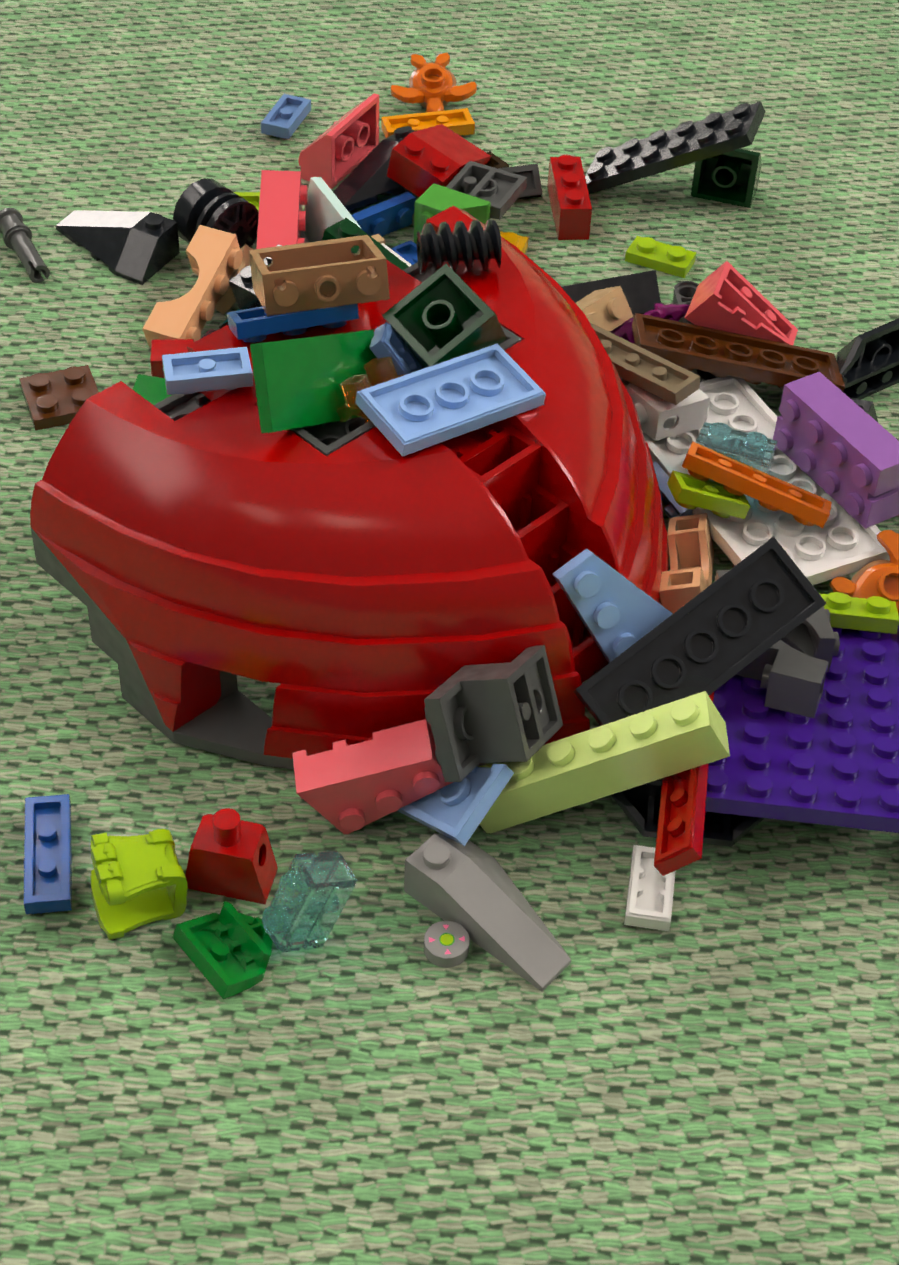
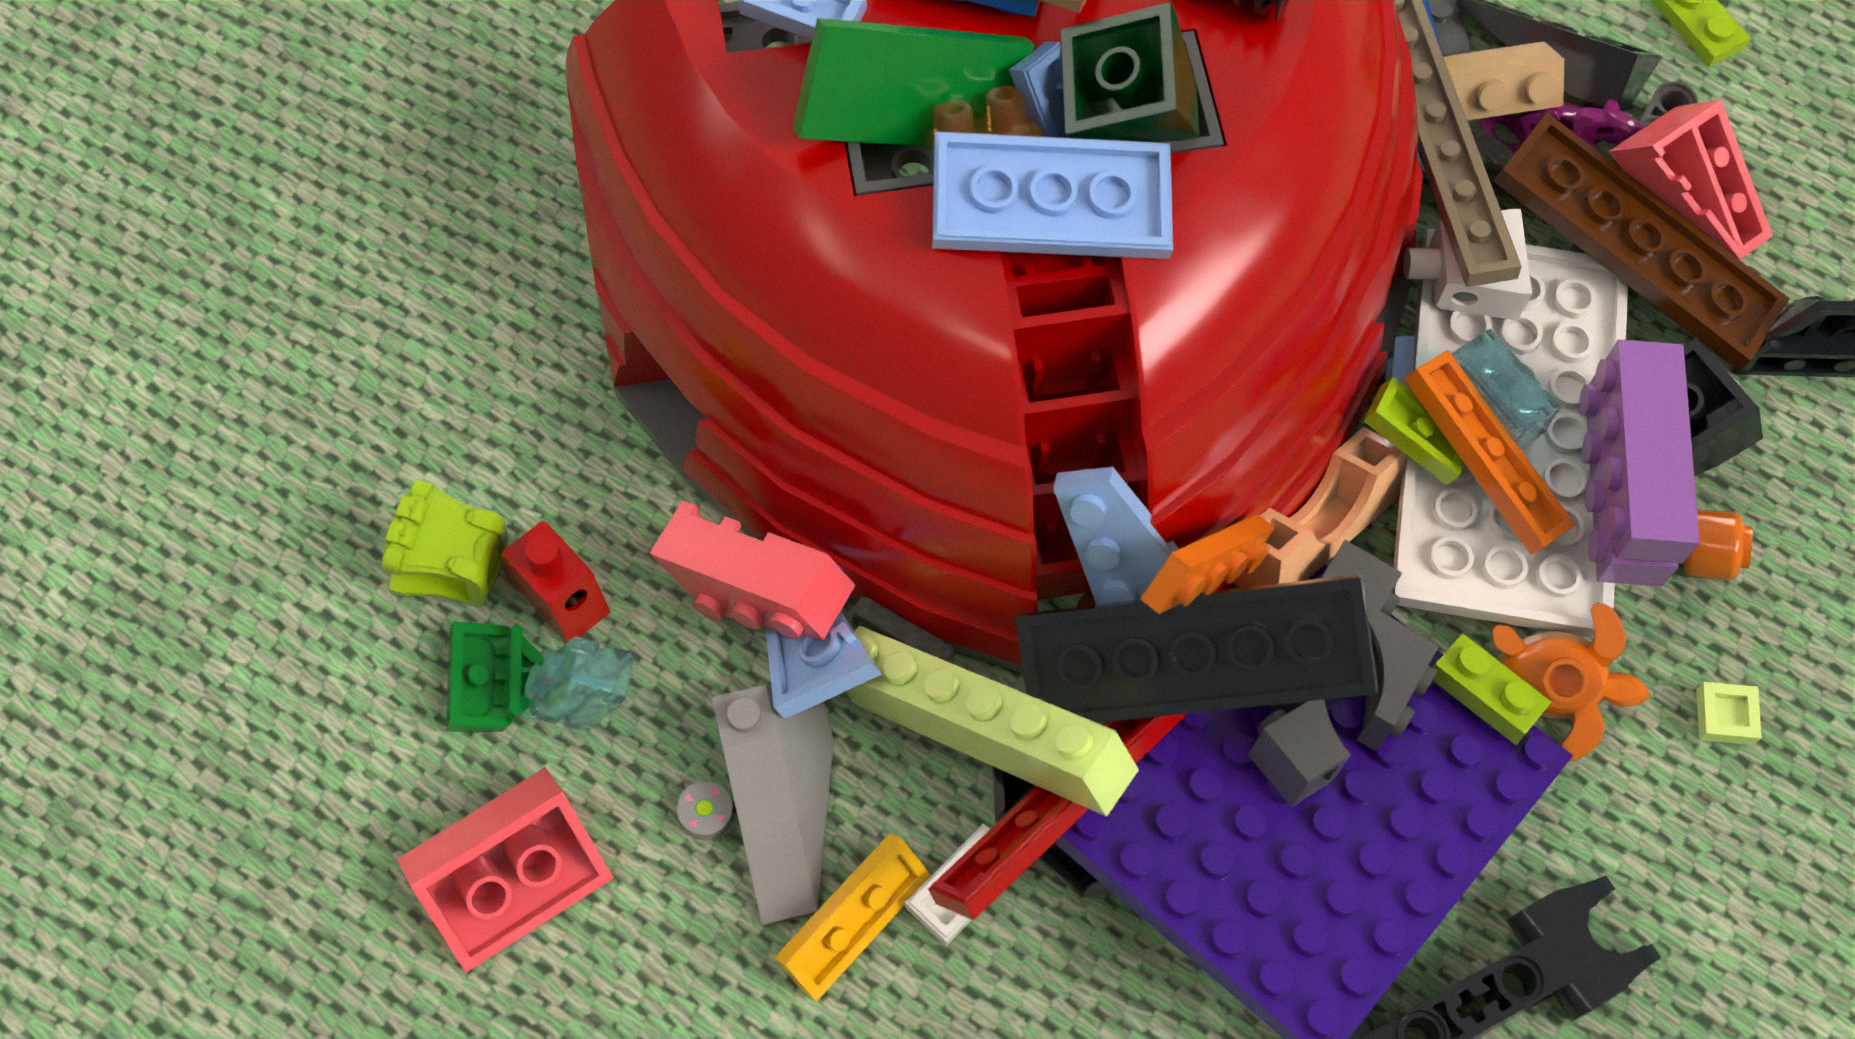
camera: 35 degrees right, 20 degrees up
(47, 854) = (398, 458): plate -> none
(342, 1051) = (505, 869): none -> coral slope
(493, 713) = (894, 597): dark grey bracket -> none
(599, 944) = (852, 916): none -> yellow plate
(678, 584) = (1208, 563): none -> orange plate

